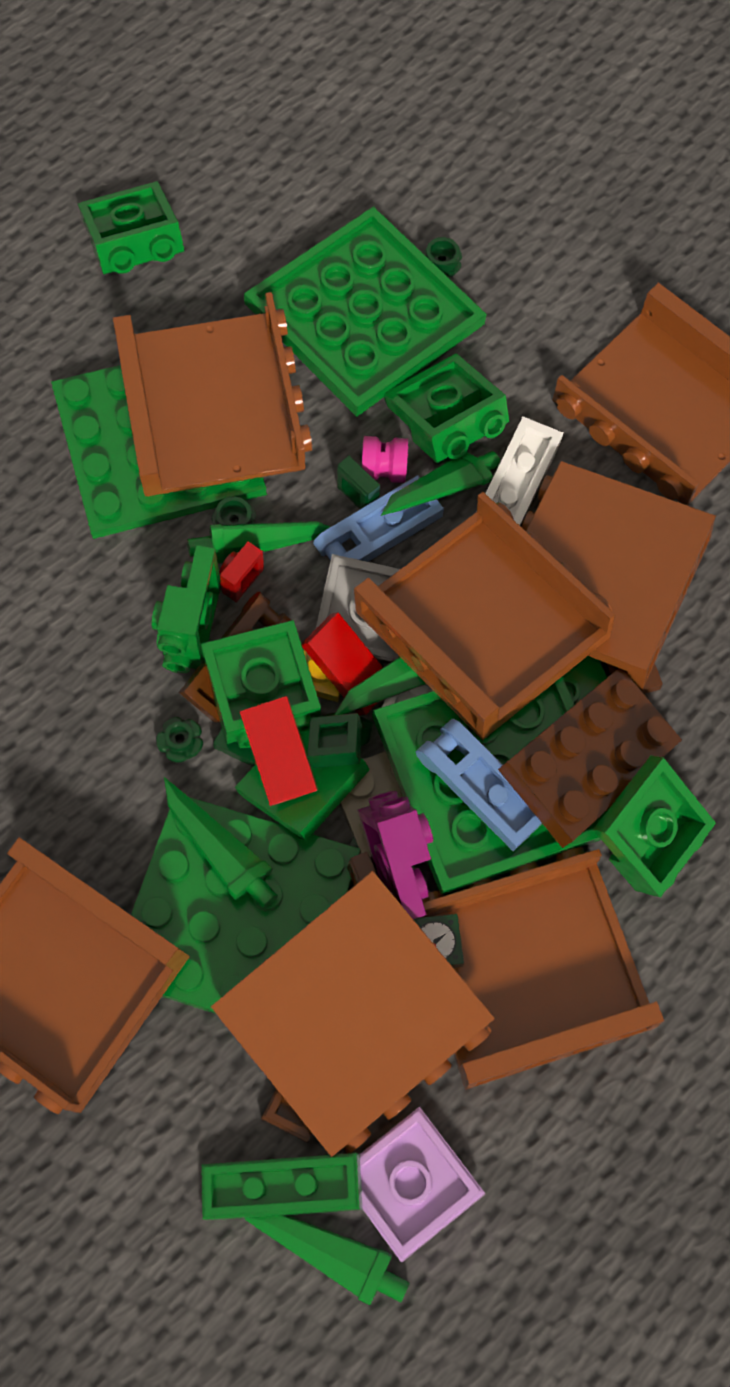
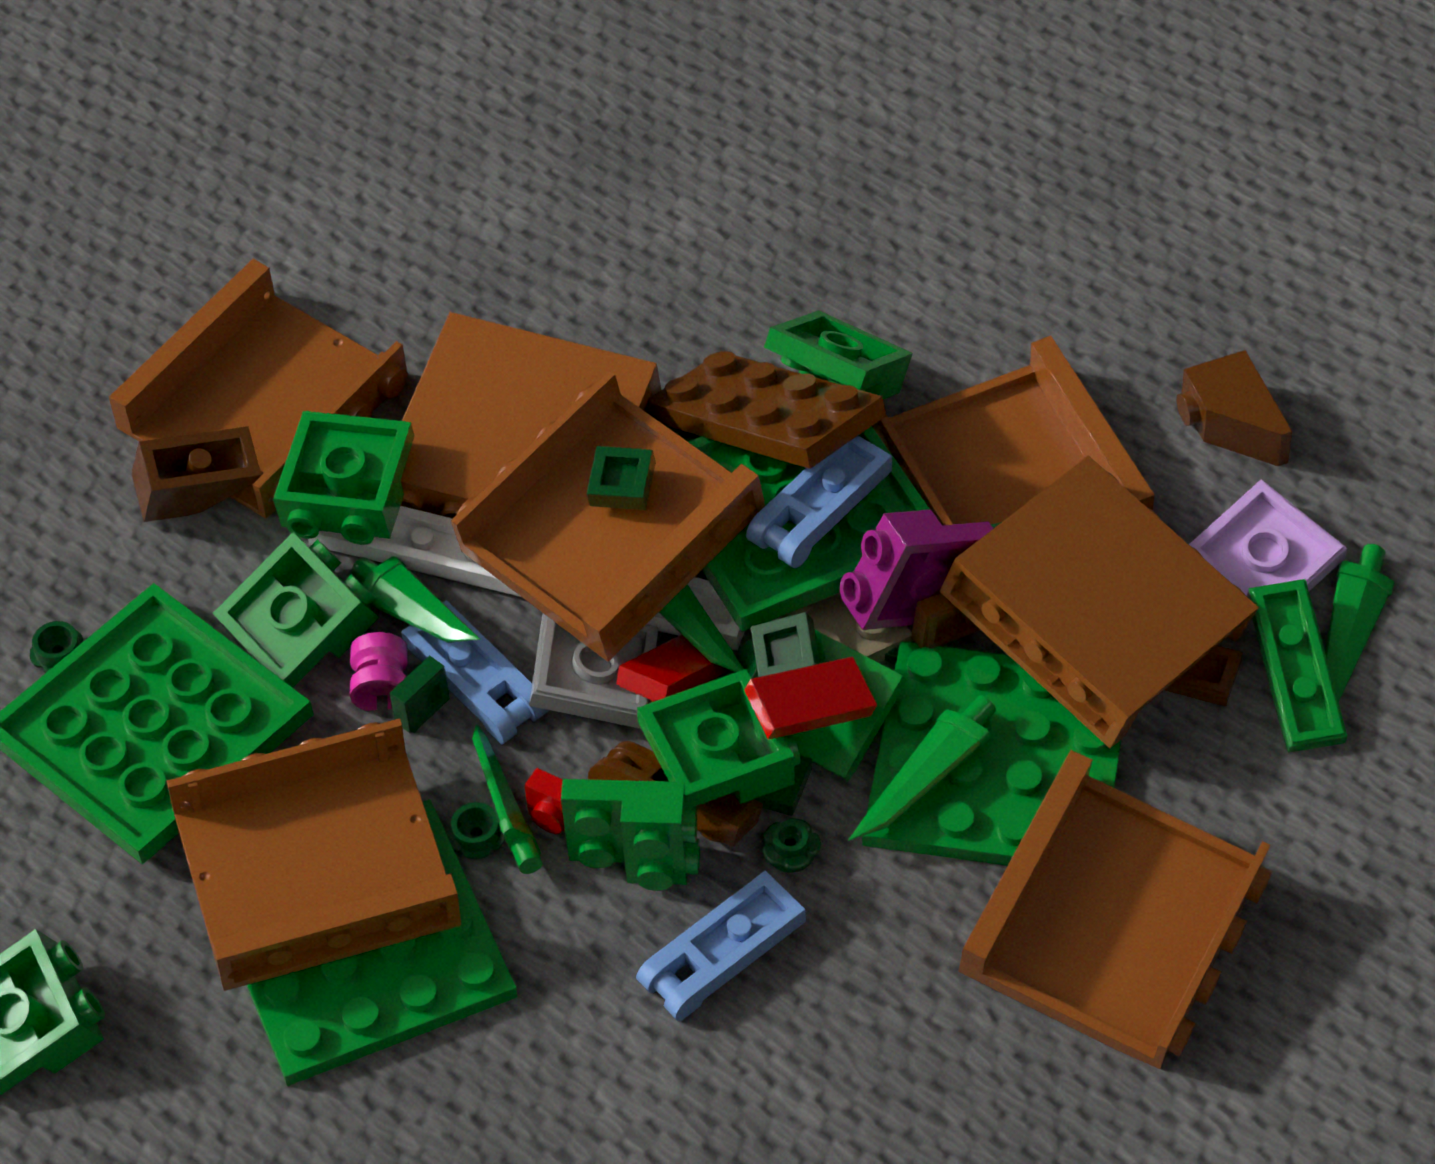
camera: 90 degrees left, 15 degrees down
(99, 680) = (722, 944): none -> medium blue plate
(513, 623) = (621, 478): none -> dark green plate
(554, 431) = (344, 476): none -> green plate
(578, 1185) = (1234, 409): none -> reddish brown slope
(582, 336) = (192, 472): none -> reddish brown slope

